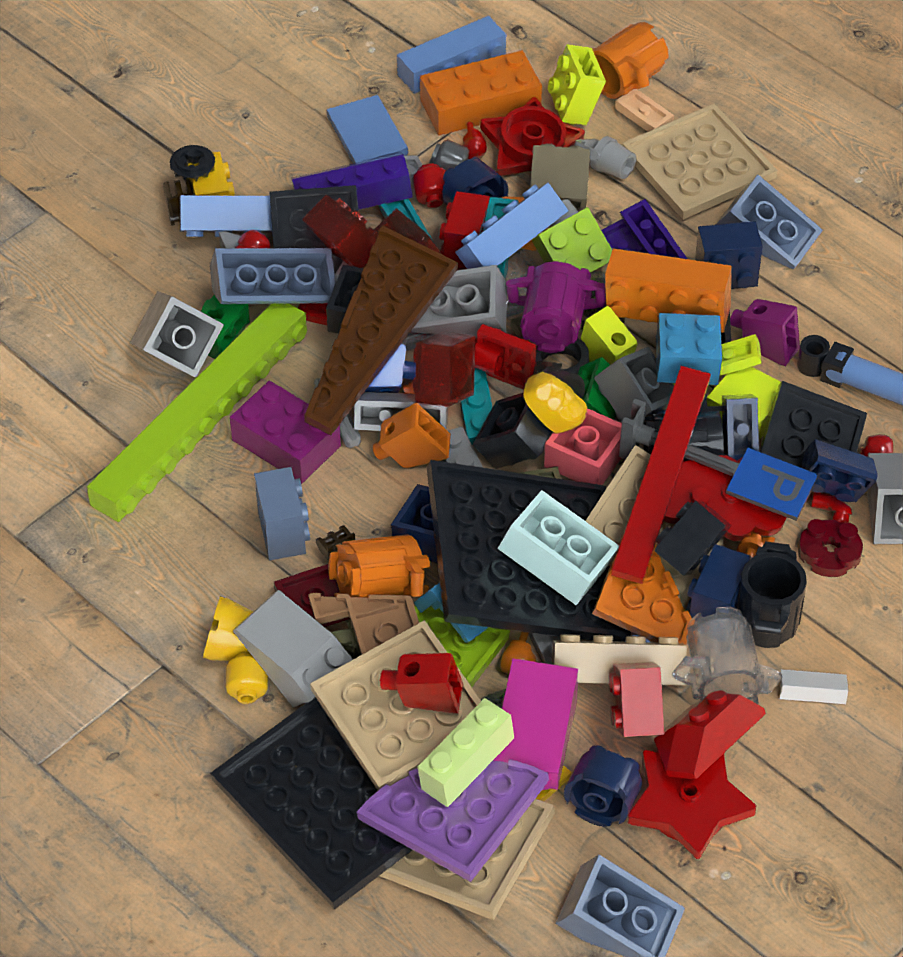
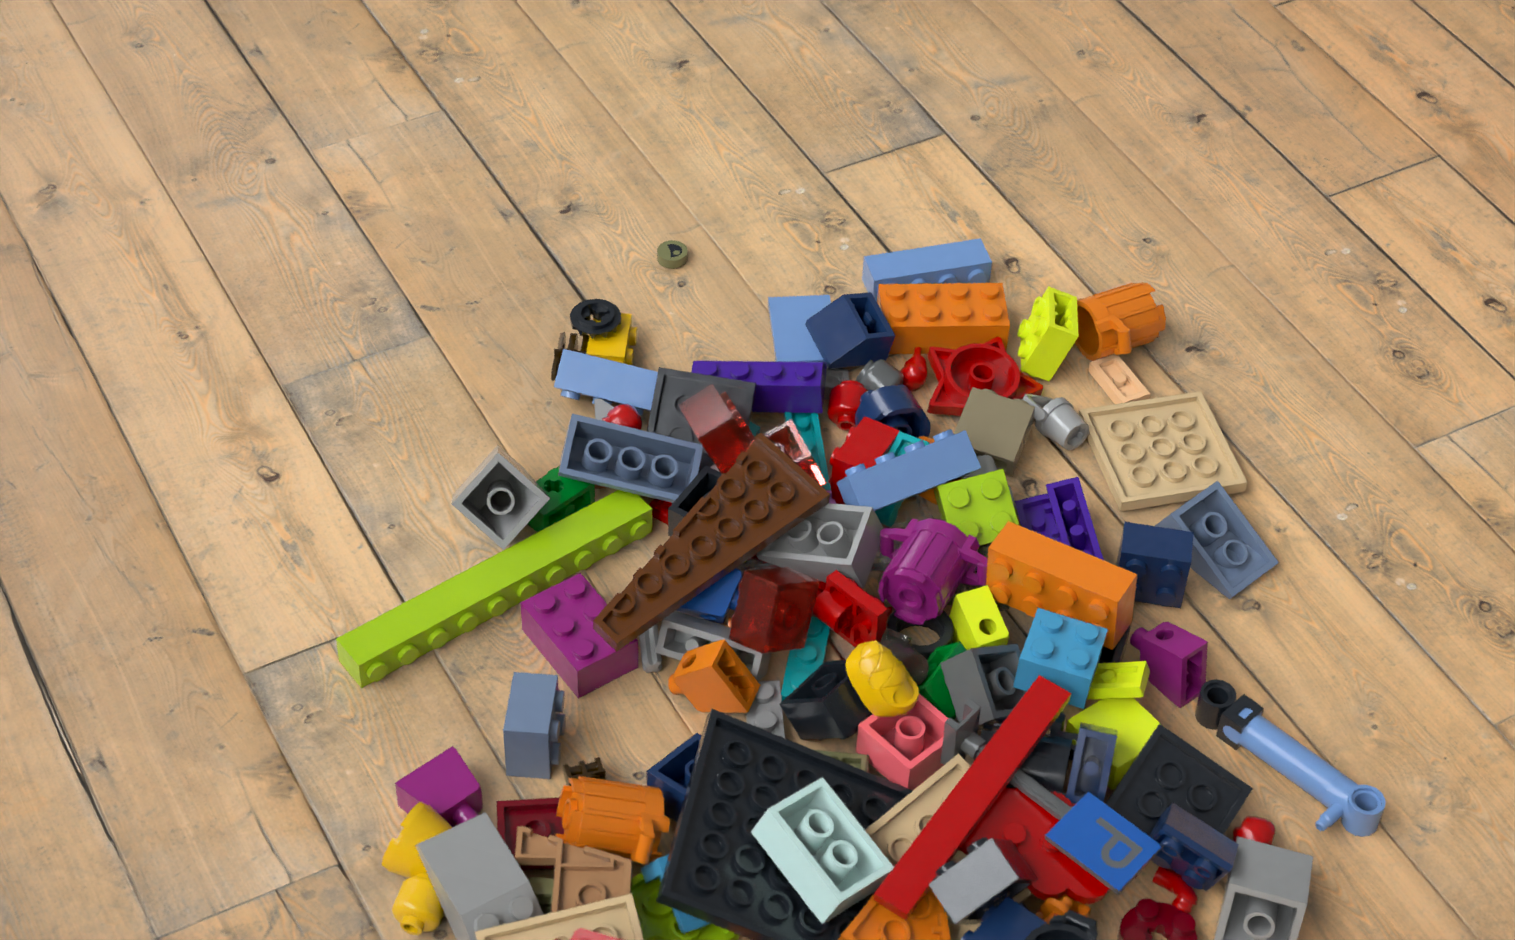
camera: 15 degrees right, 5 degrees down
(227, 578) = (445, 786): none -> magenta torso
(228, 91) = (672, 254): none -> olive tile
(412, 121) = (851, 331): none -> dark blue slope

